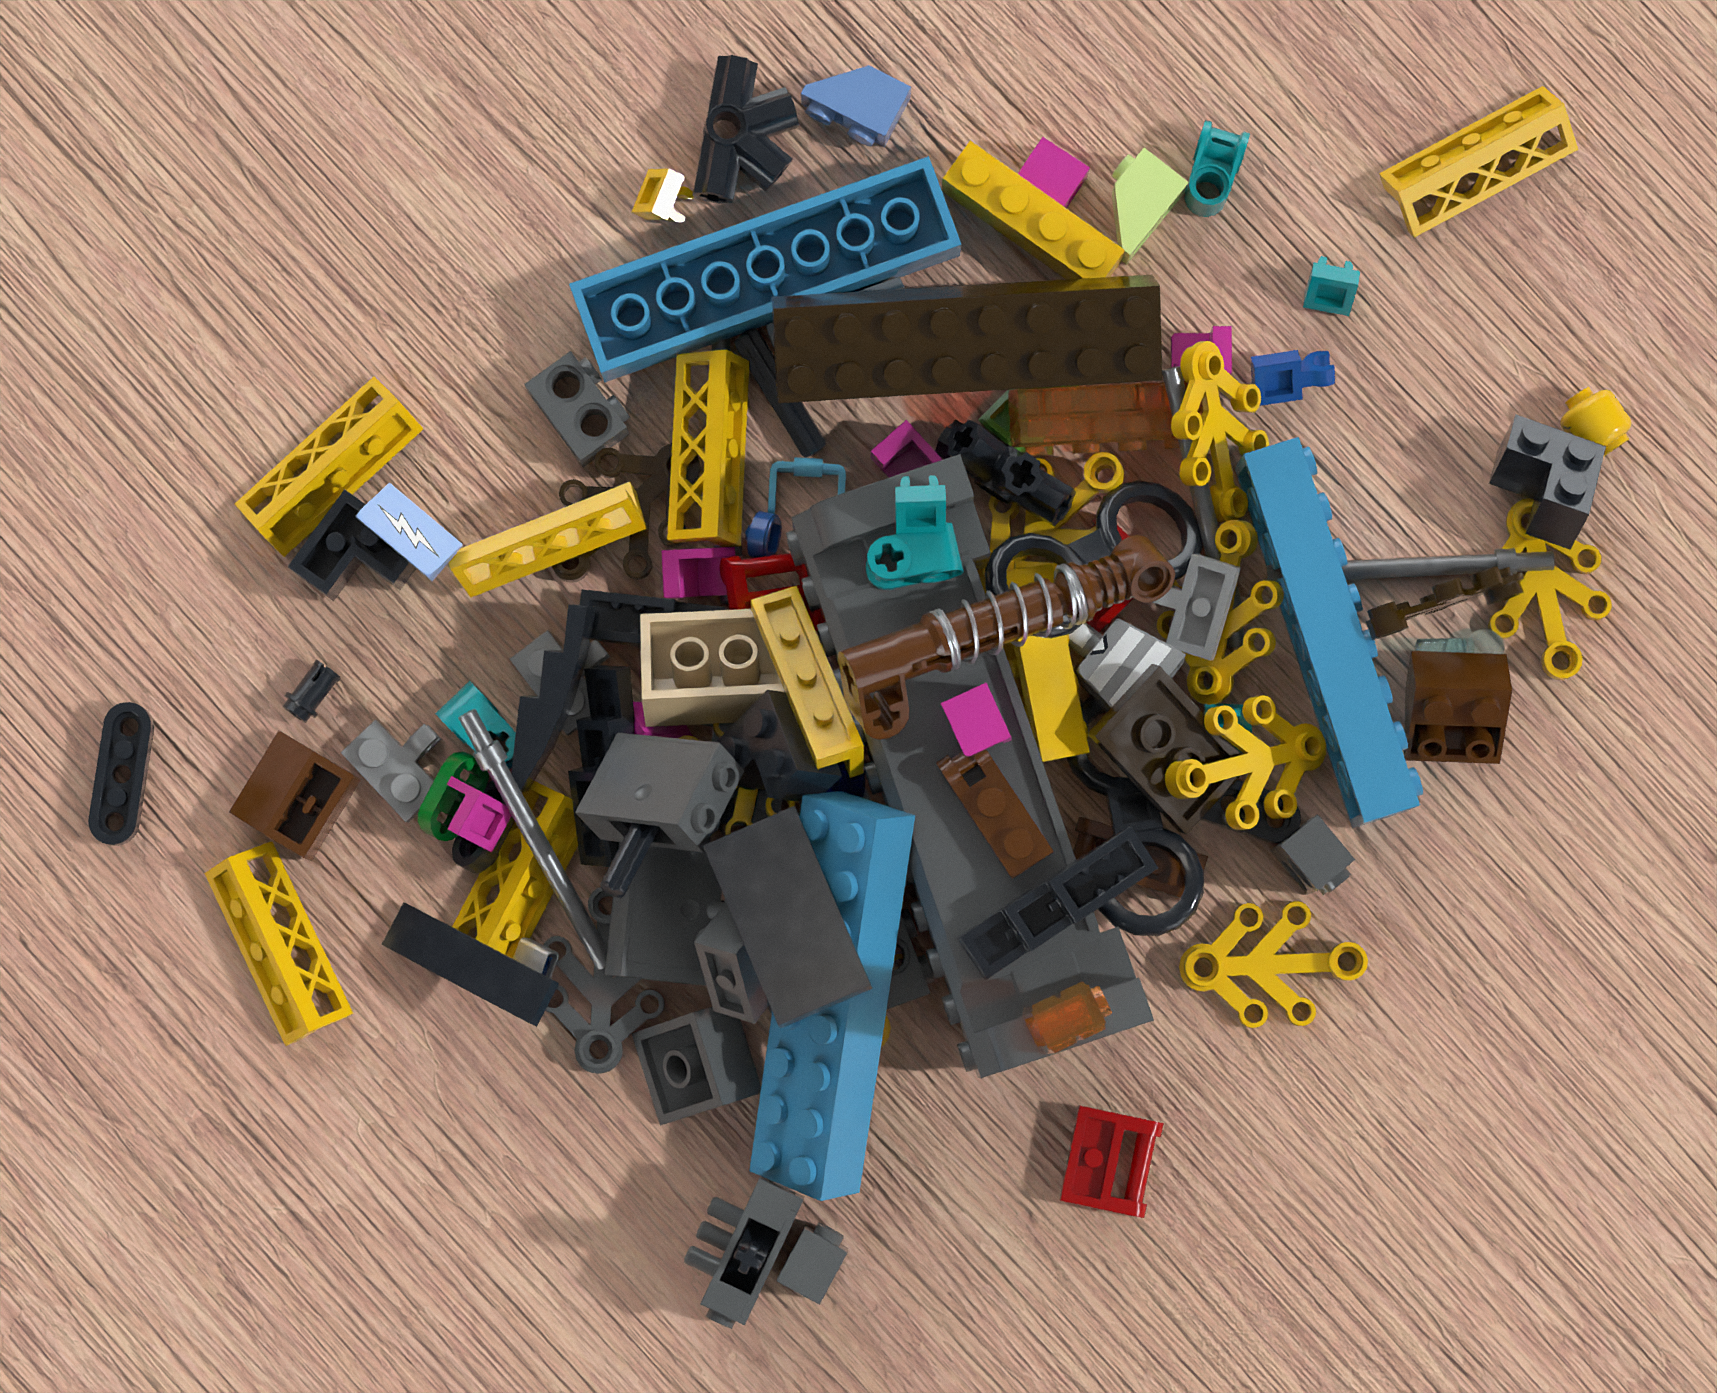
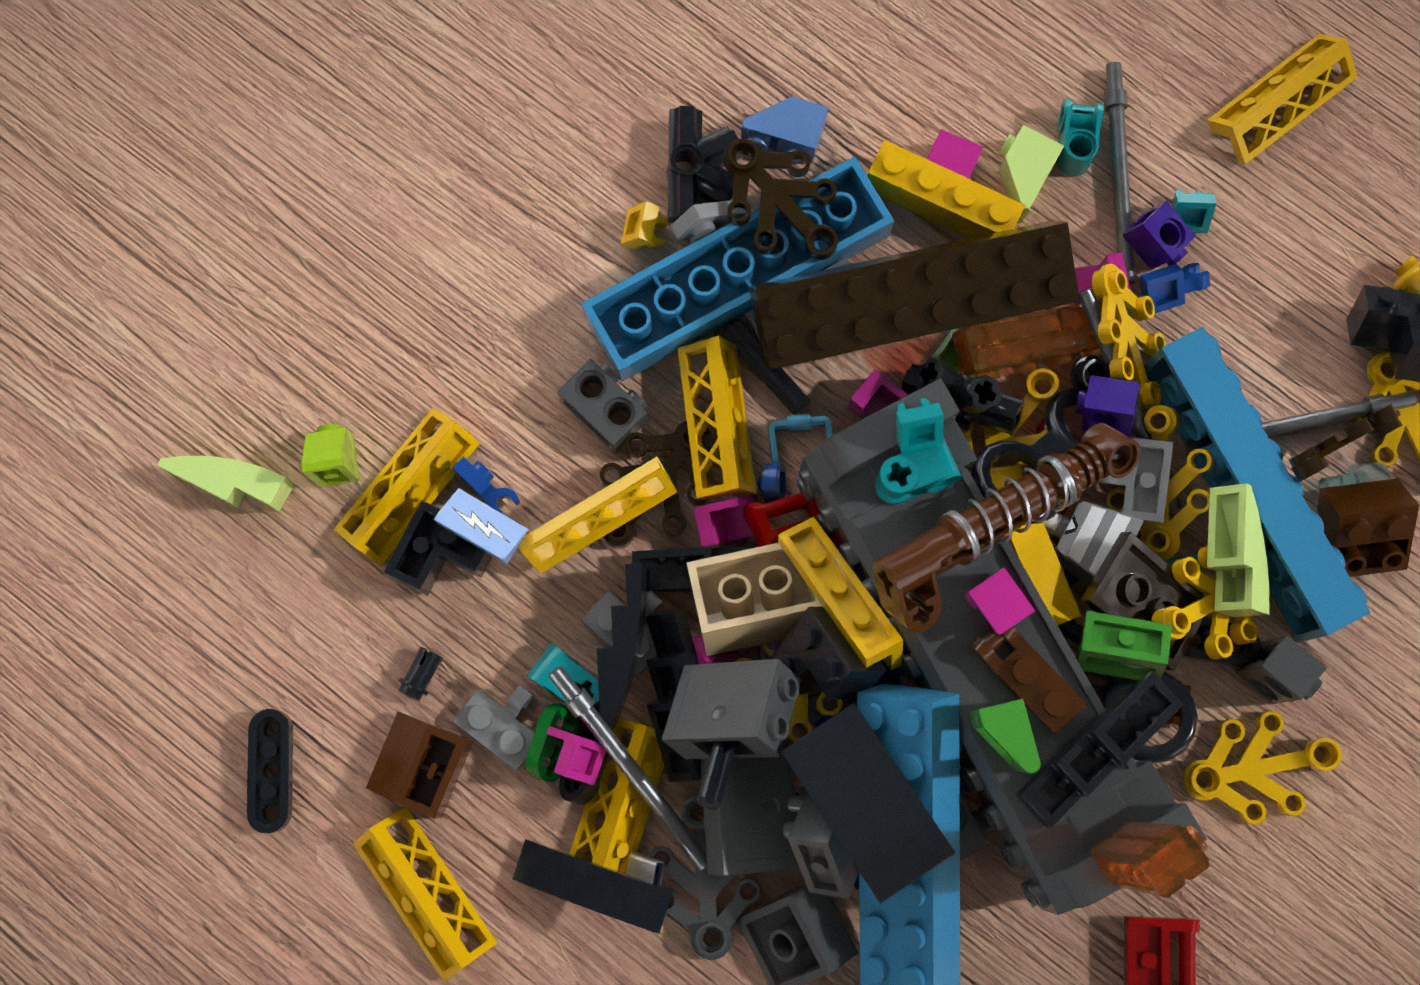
camera: 10 degrees left, 5 degrees down
(122, 424) = (230, 479): none -> yellowish green slope
(244, 416) = (330, 456): none -> lime slope
(414, 472) = (479, 479): none -> blue plate
(736, 205) = (703, 220): none -> light grey plate
(824, 190) = (777, 194): none -> dark brown plant
(953, 862) = (1009, 734): none -> bright green tile
(1125, 796) = (1123, 646): none -> bright green tile
(1170, 478) = (1094, 366): none -> black plate
(1171, 512) = (1109, 403): none -> dark purple brick
(1265, 310) = (1159, 236): none -> dark purple brick
(1270, 133) = (1115, 103): none -> flat silver bar
(1283, 710) = (1237, 552): none -> yellowish green slope

